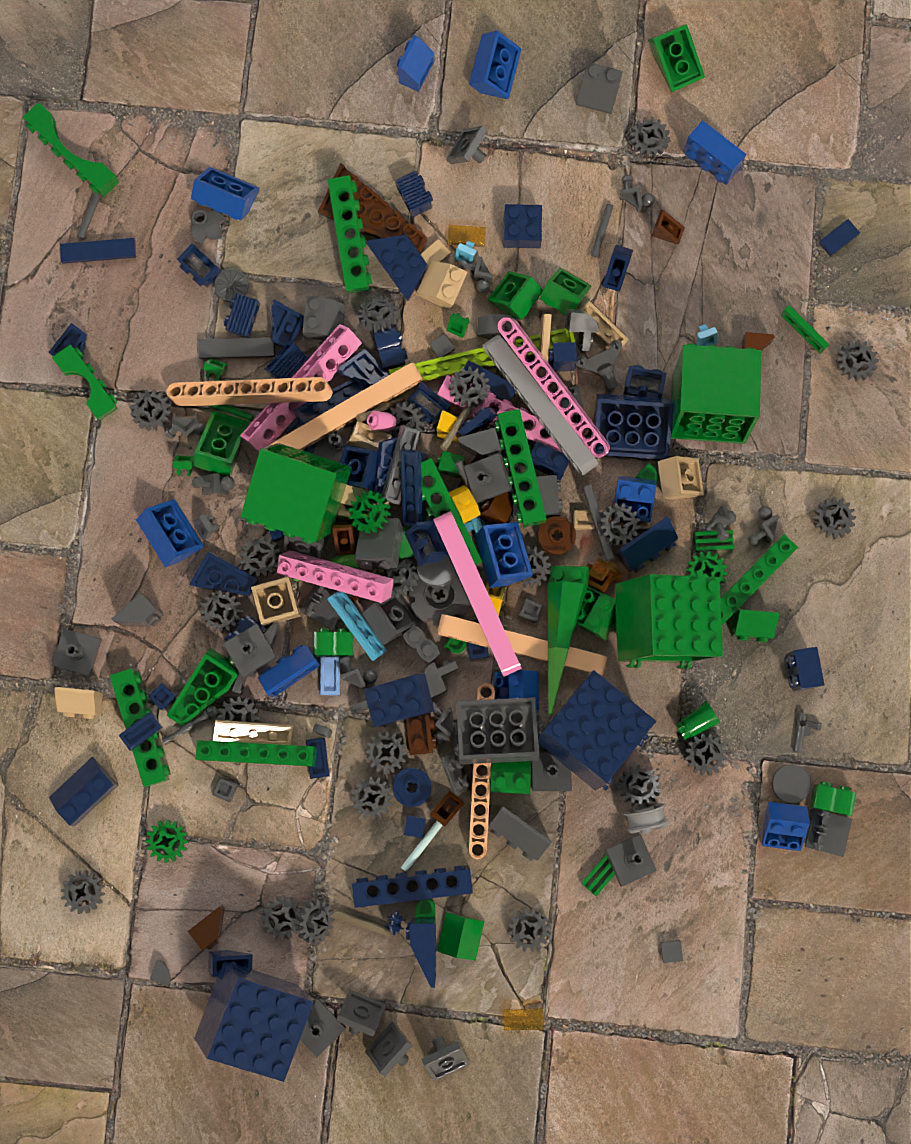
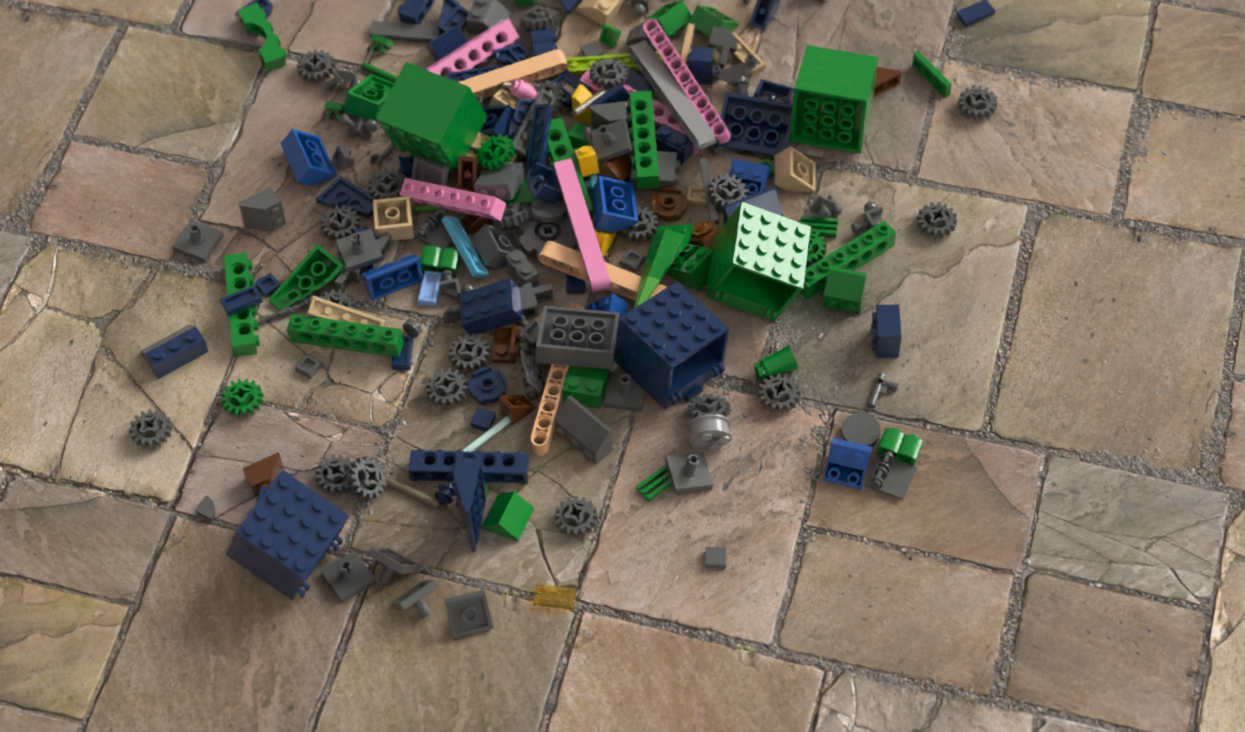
camera: 10 degrees right, 25 degrees down
(78, 701) = (189, 272): tan slope -> none
(184, 392) = (413, 52): light nougat beam -> none
(455, 646) = (555, 278): green tile -> none

